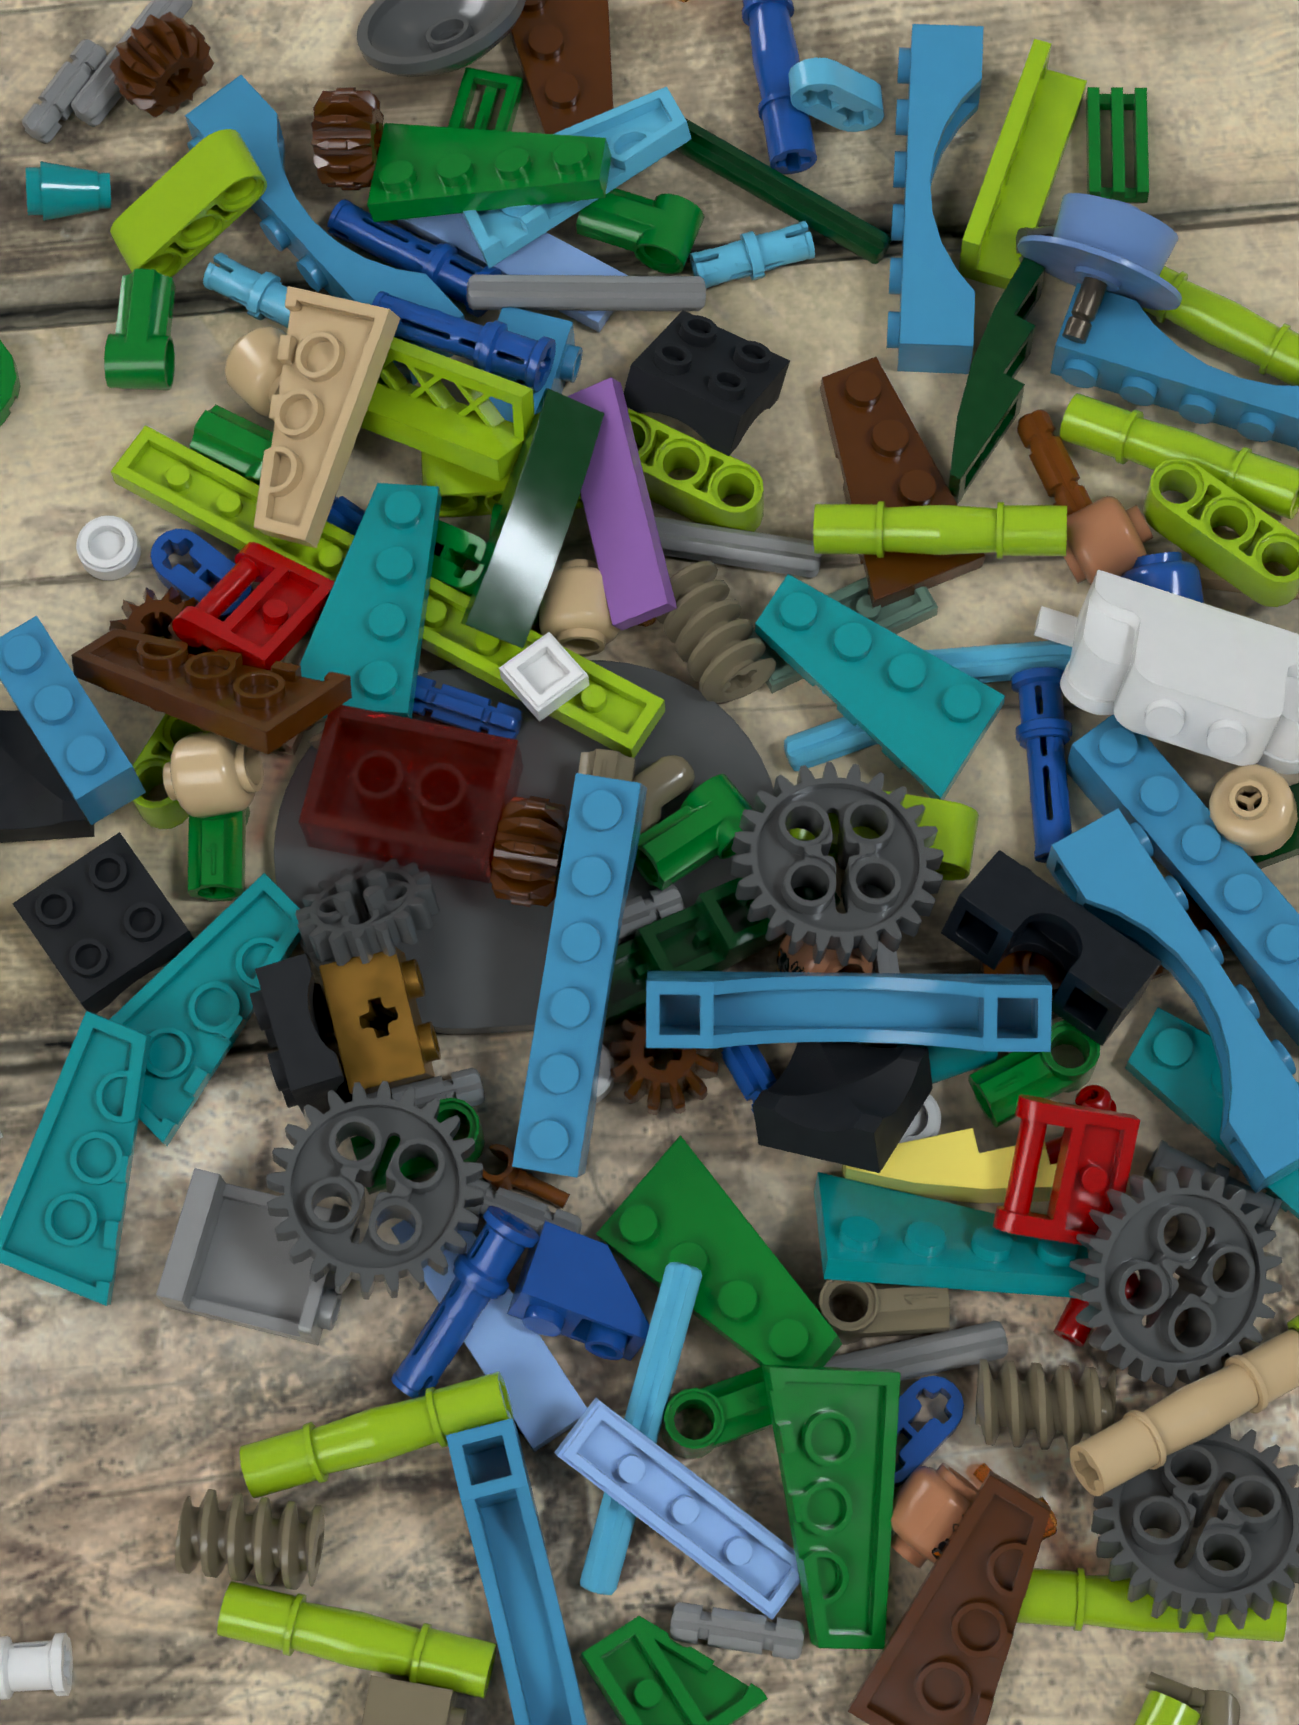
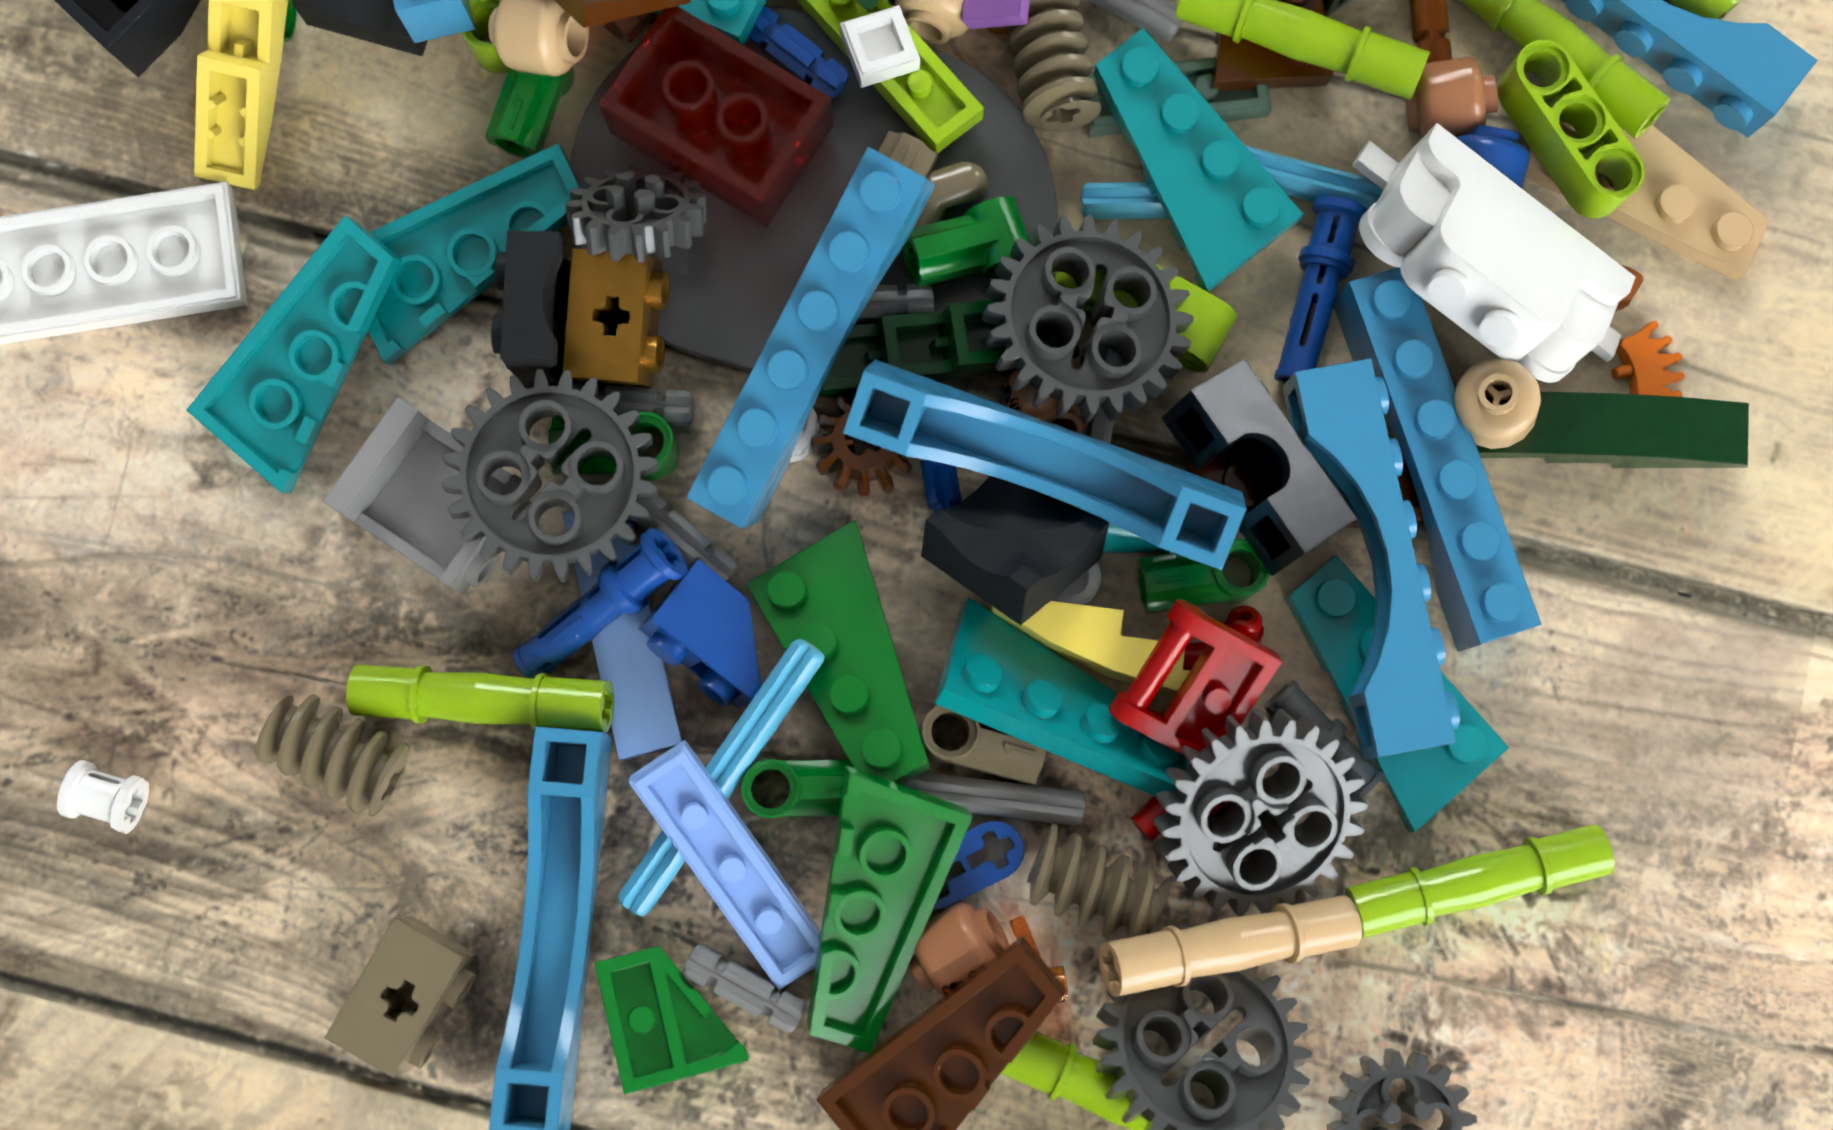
camera: 10 degrees right, 10 degrees up
(104, 923) = (399, 139): black brick -> none
(356, 1639) = (399, 875): lime piece -> none
(522, 1179) = (704, 516): dark orange hand -> none
(529, 851) = (803, 205): reddish brown gear -> none

